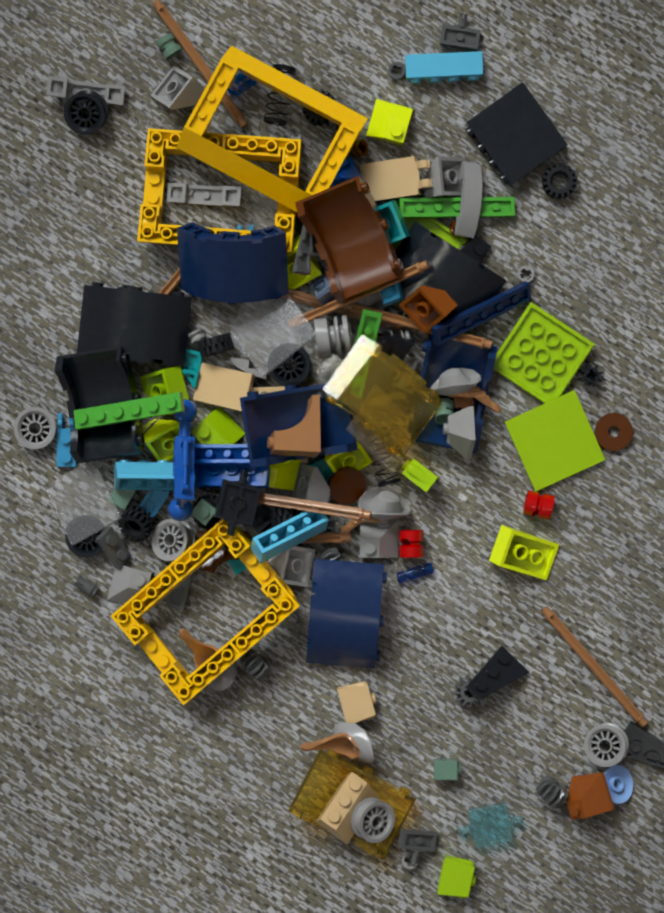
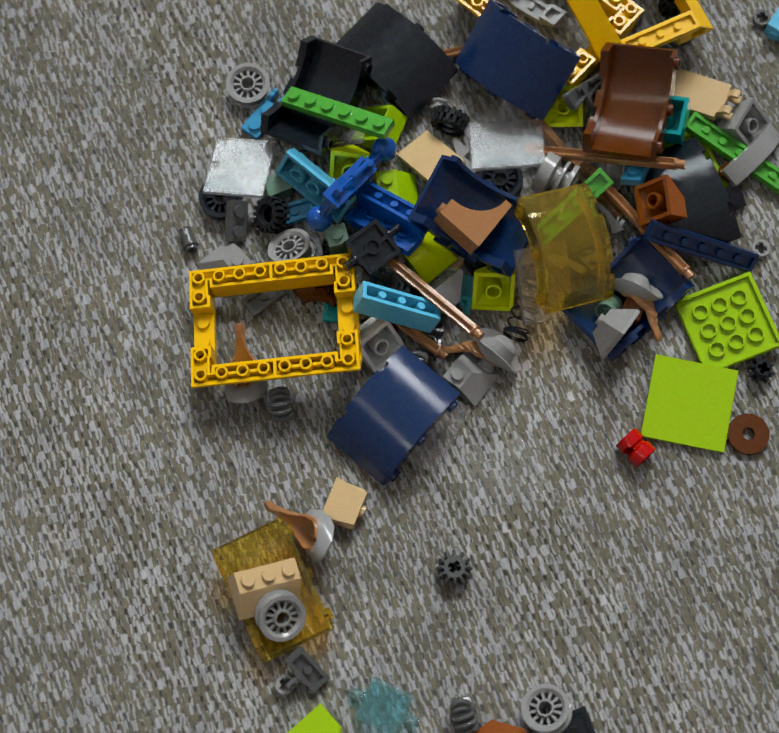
camera: 35 degrees right, 15 degrees down
(192, 366) = (416, 126): teal slope -> none
(322, 290) = (573, 140): sand blue slope -> none
(346, 485) = (478, 308): reddish brown tile -> none
(362, 150) = (687, 53): reddish brown bush -> none
(389, 122) = (726, 54): neon yellow slope -> none
(411, 543) = (498, 397): red wheel -> none
(415, 572) = (480, 429): clear blue axle -> none
(418, 474) = (547, 345): lime torso -> none
(446, 768) = (381, 624): sand green brick -> none
(495, 674) = (489, 568): black wing -> none
(523, 552) = (593, 480): neon yellow slope -> none
(594, 666) = (585, 632): medium nougat piece -> none

